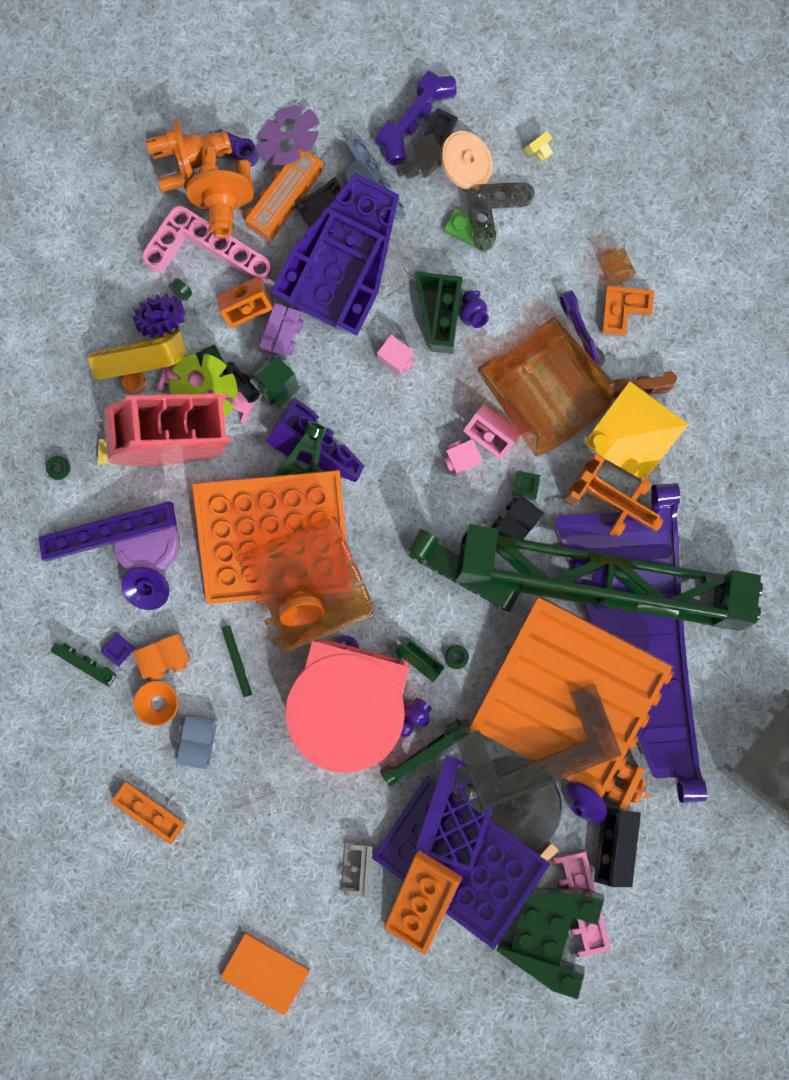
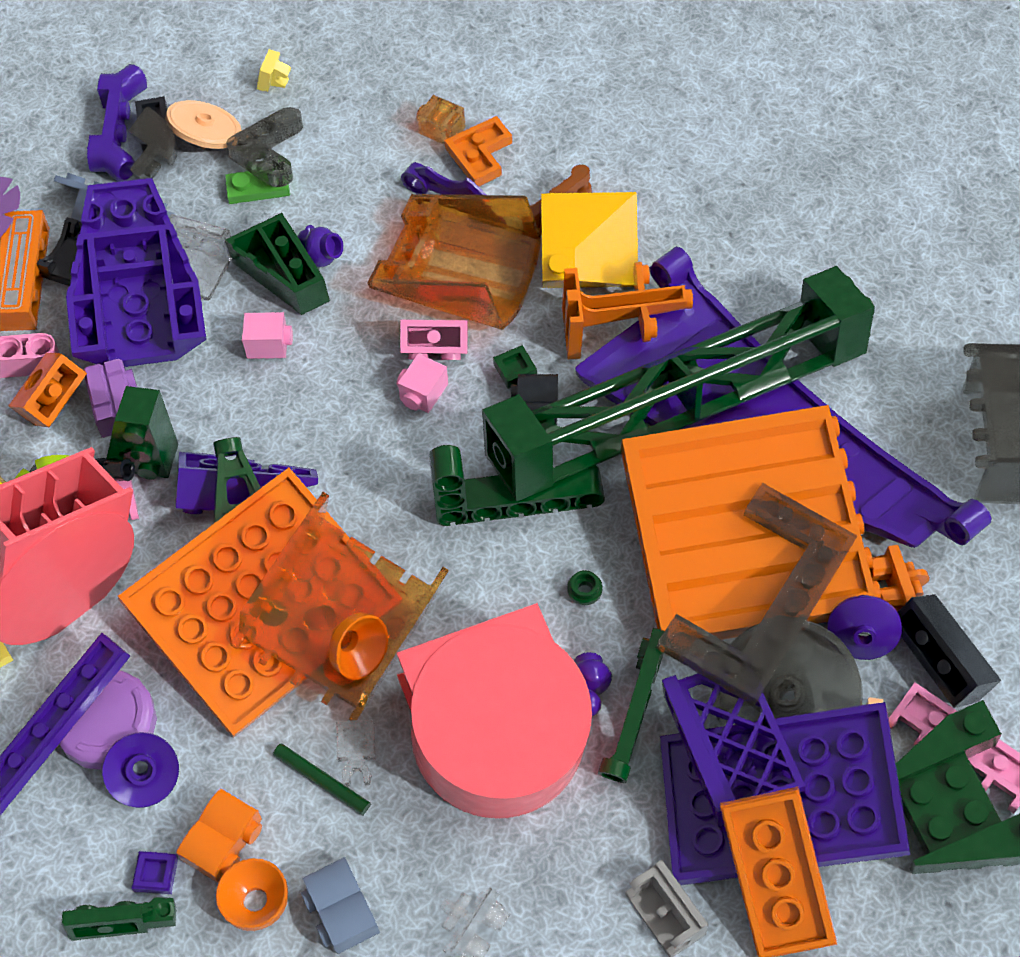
camera: 30 degrees left, 25 degrees down
(420, 659) = (566, 616): dark green tile -> none

